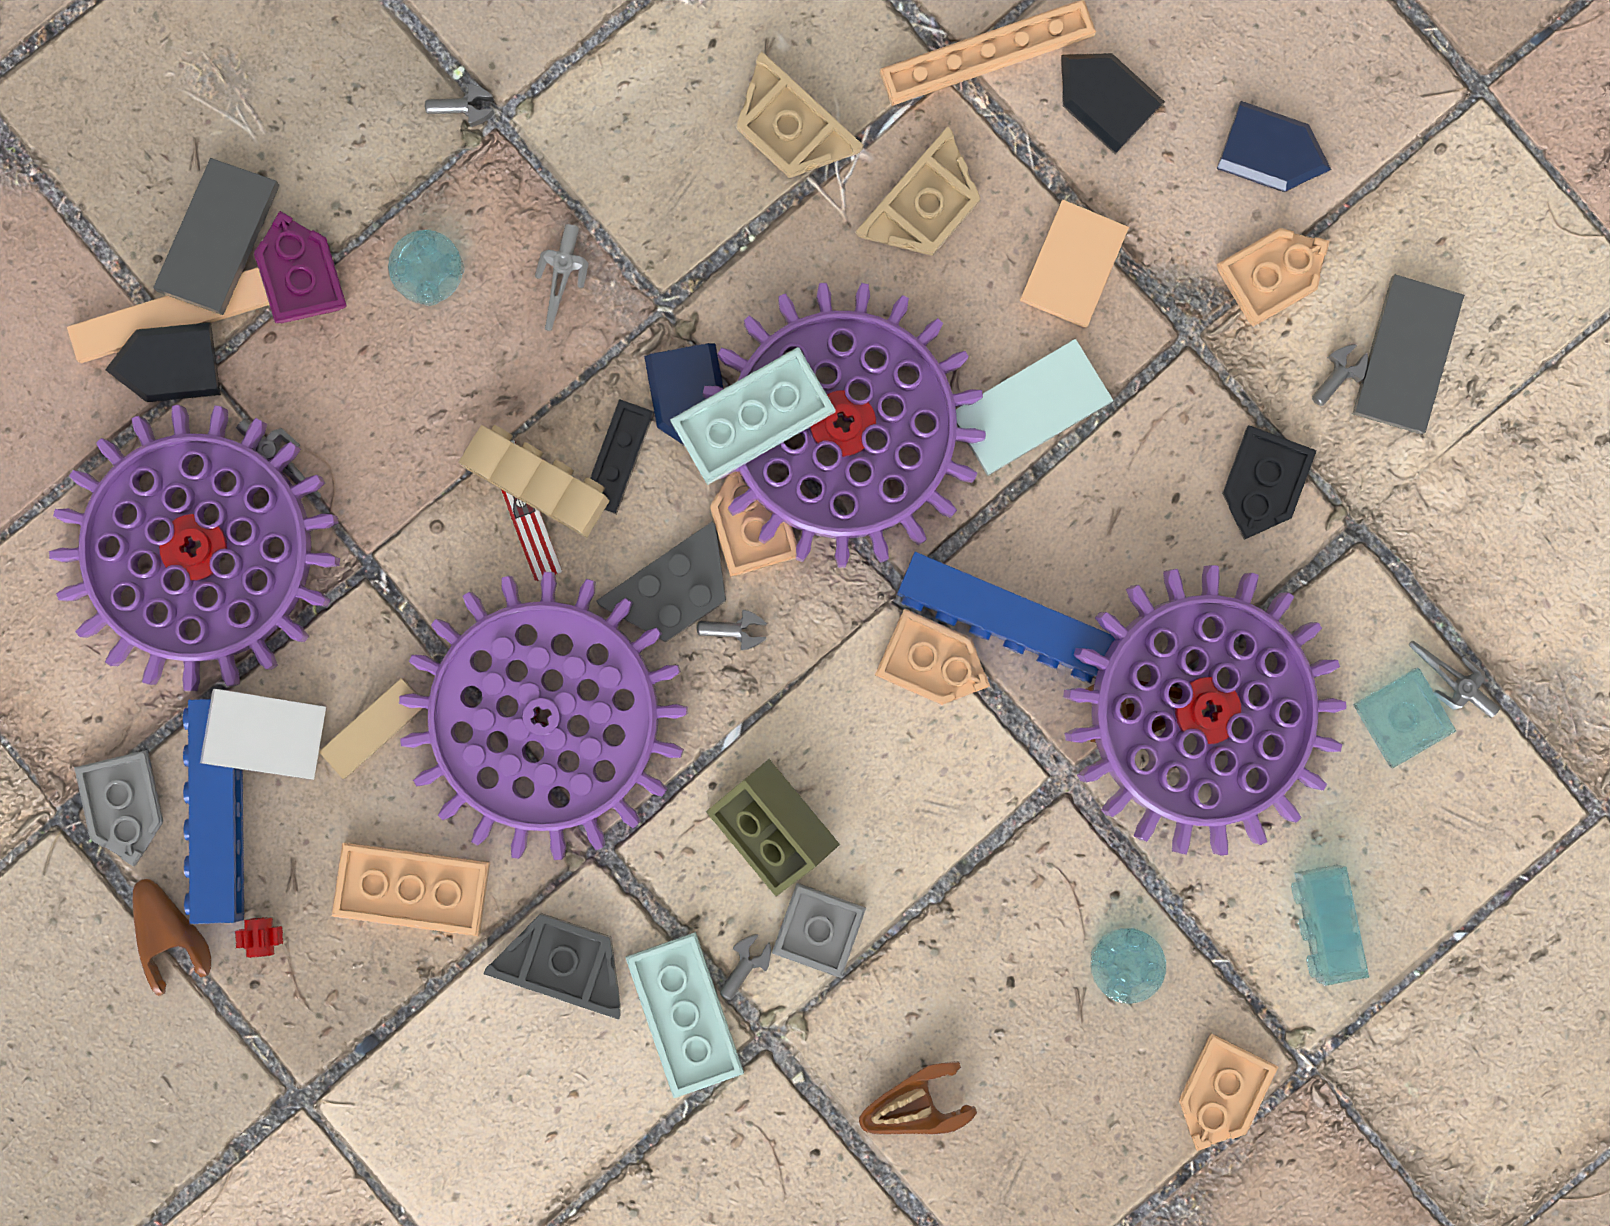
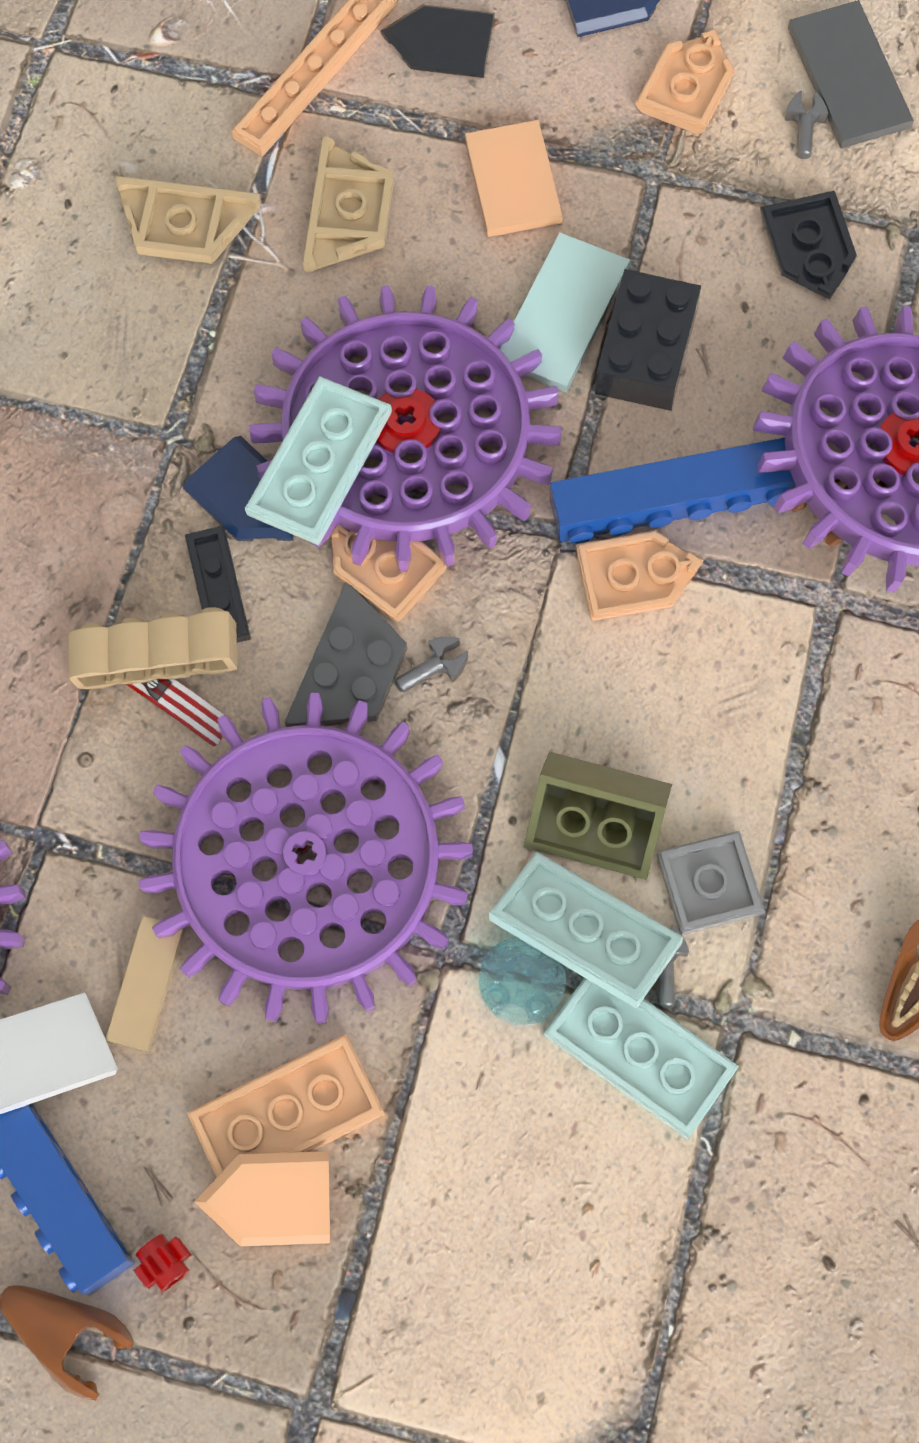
camera: 30 degrees left, 15 degrees down
(362, 943) = (272, 1198): none -> light nougat tile
(562, 964) = (487, 1081): dark grey wing -> none
(563, 263) = (53, 456): light grey piece -> none
(635, 910) = (521, 982): none -> clear light blue tile
(704, 906) = (586, 929): none -> light aqua tile
(1076, 480) = (647, 339): none -> black brick

